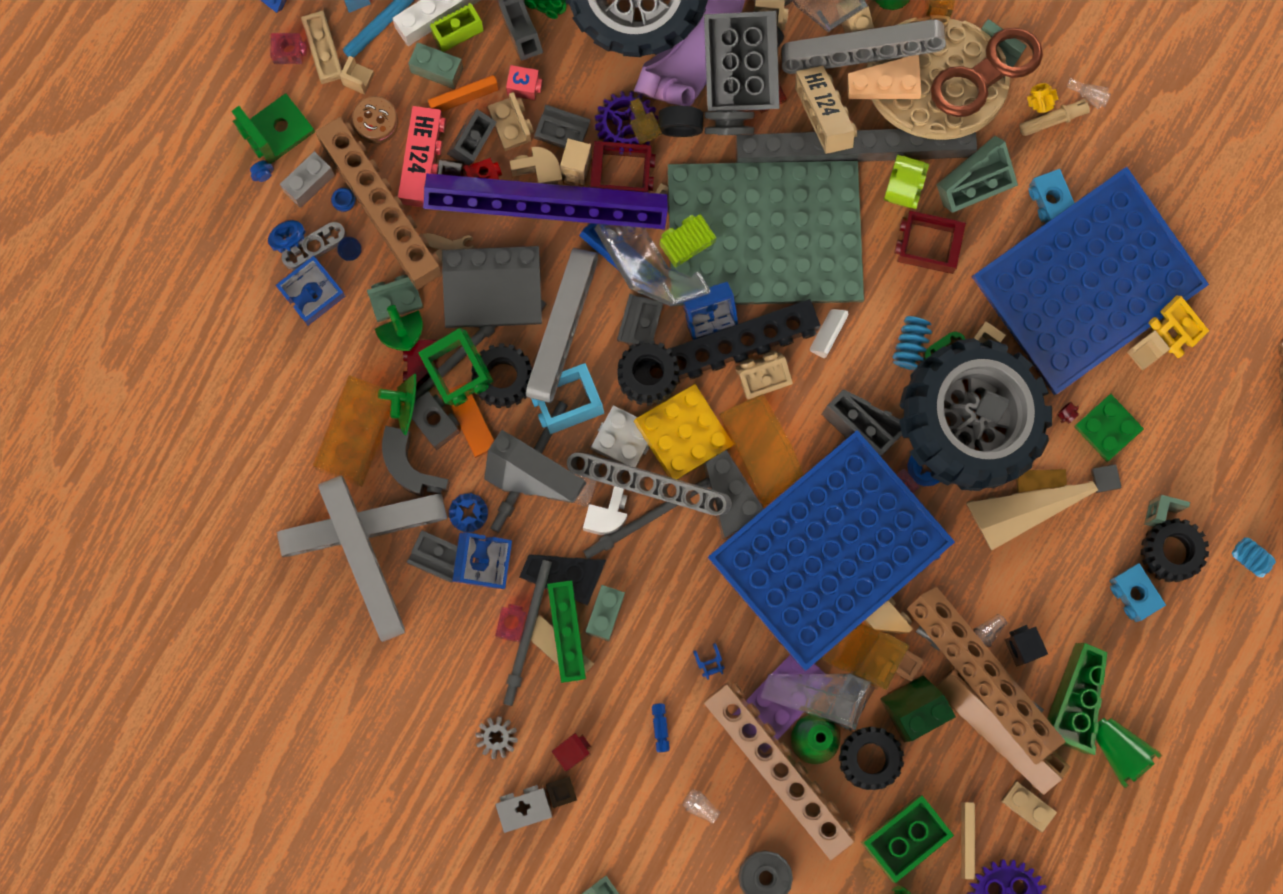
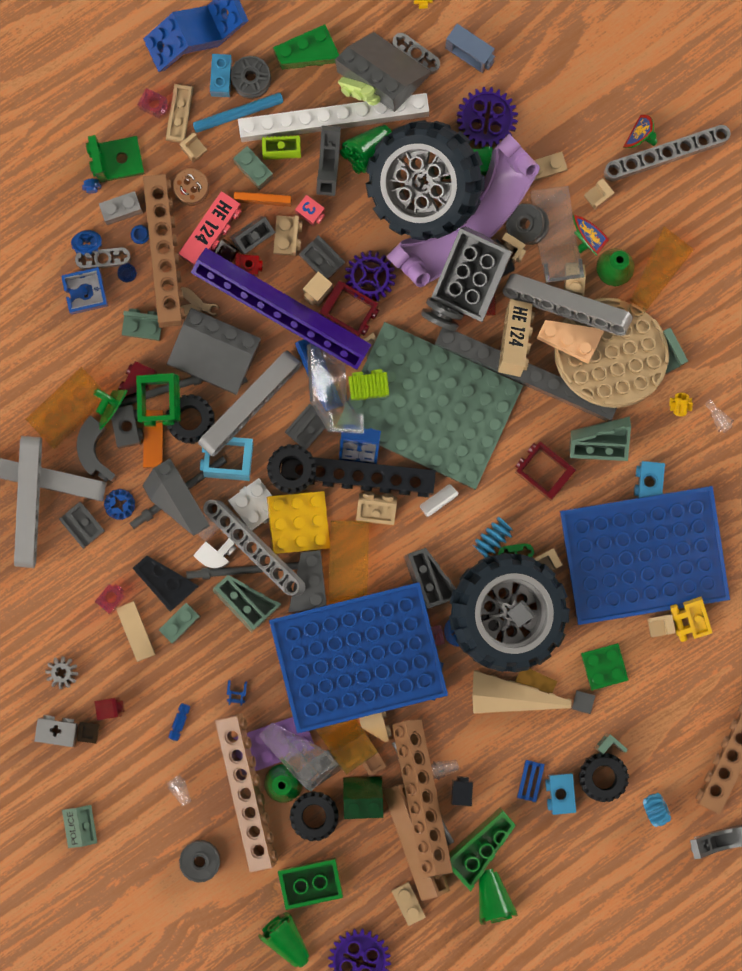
camera: 30 degrees right, 5 degrees up
(401, 332) = (134, 352): green shield -> none
(490, 560) = (116, 549): piece -> none
(514, 679) = (94, 638): dark grey bar -> none
(542, 162) = (295, 279): tan brick -> none
(566, 631) = (145, 623): green plate -> none
(644, 125) = (380, 287): clear yellow plate -> none
(668, 552) = (245, 603): none -> sand green wedge
(680, 121) = (408, 295): black tyre -> none
(906, 182) = (548, 419): lime brick -> none
(967, 840) = (353, 906): tan tile -> none
(986, 72) = (646, 367): copper bar -> none
(1055, 117) = (683, 423): tan axle -> none
(1068, 413) = (580, 642): dark red plate -> none
(1103, 595) = (523, 778): none -> blue tile

